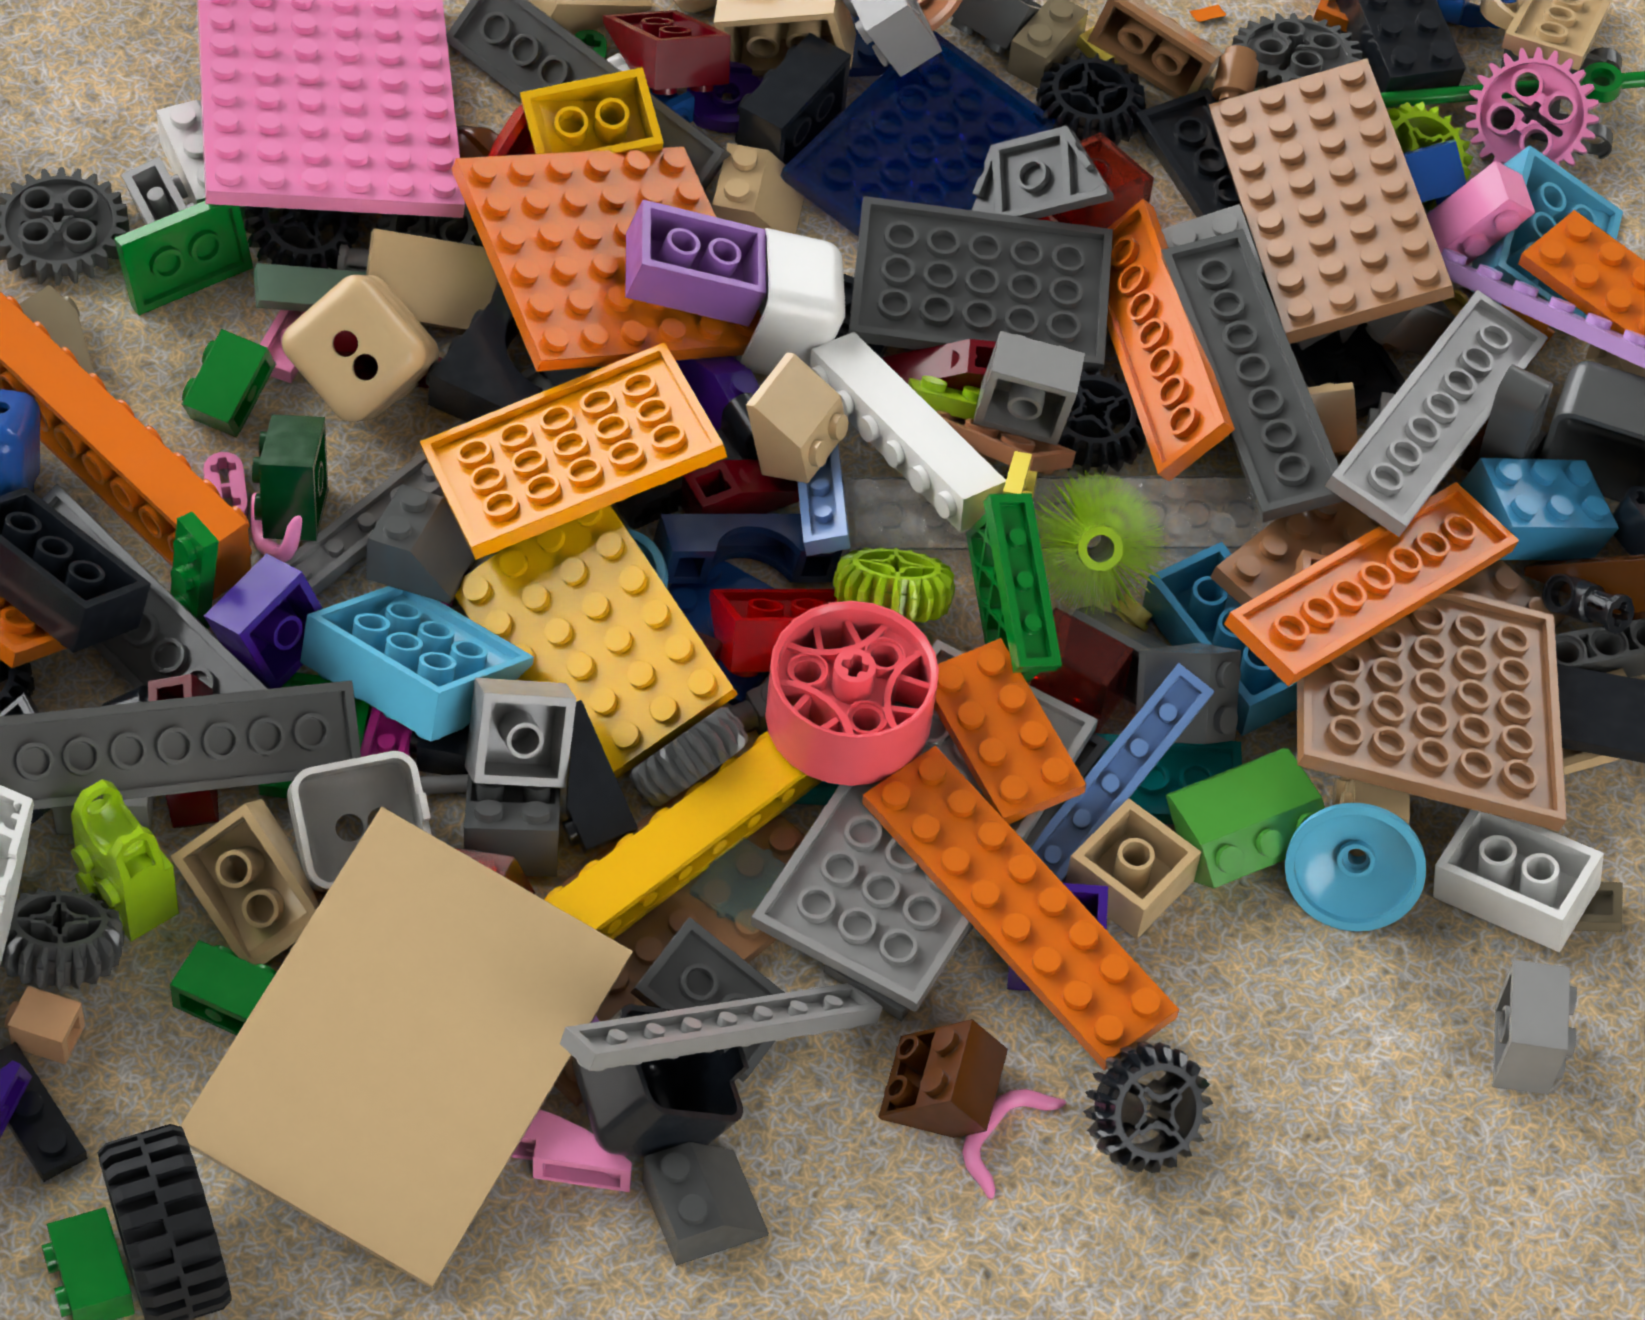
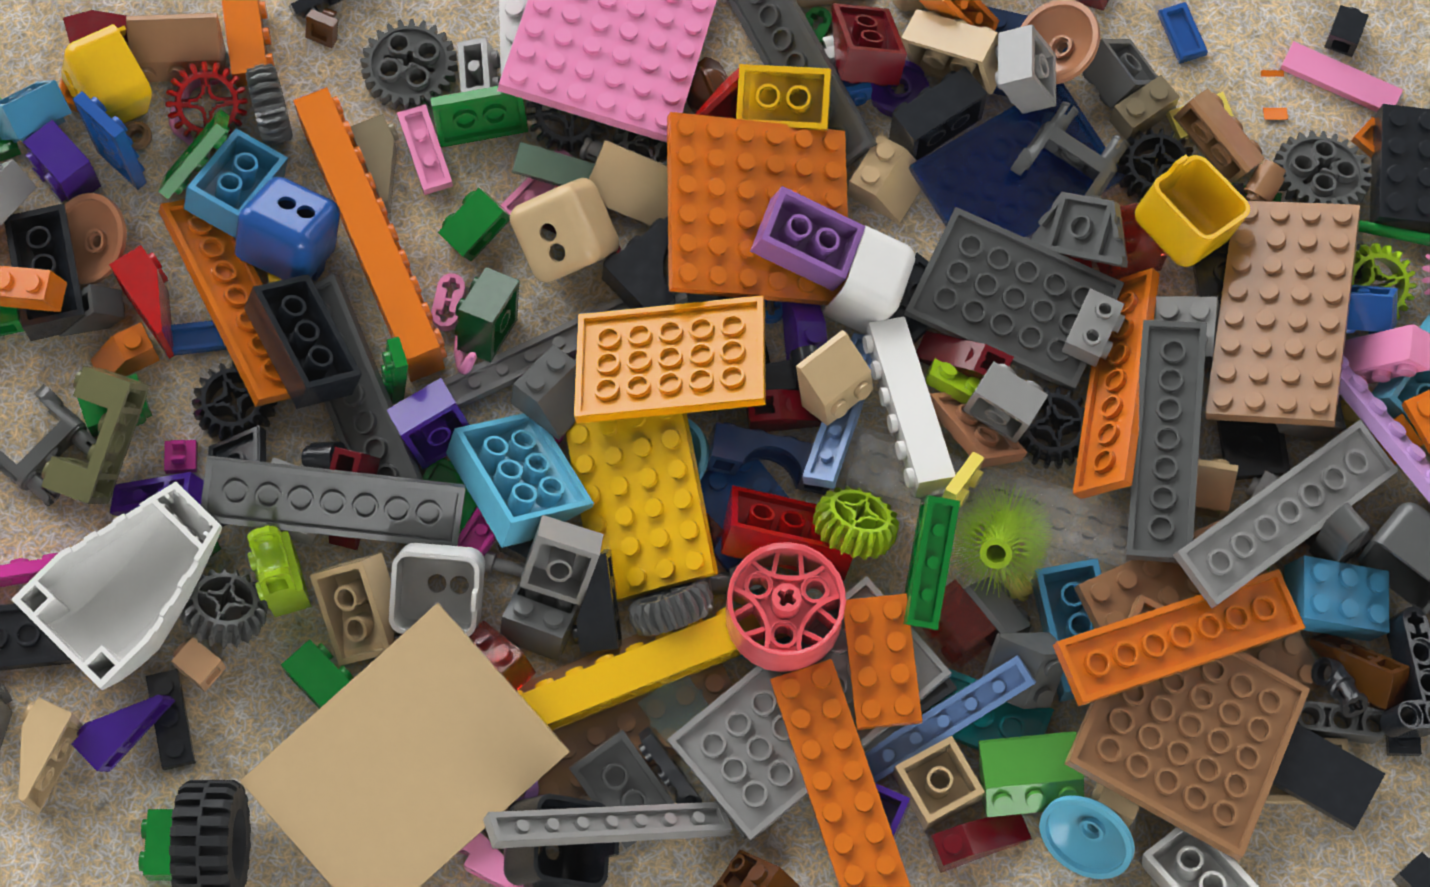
camera: 25 degrees right, 15 degrees up
(121, 319) = (425, 149): none -> bright pink plate
(768, 955) = (670, 771): none -> black hinge
(959, 94) = (1055, 139): none -> dark grey connector
(1099, 283) = (1093, 328): none -> light grey brick
(1164, 118) = (1191, 210): none -> yellow piece
(1207, 927) = (977, 840): none -> dark red slope

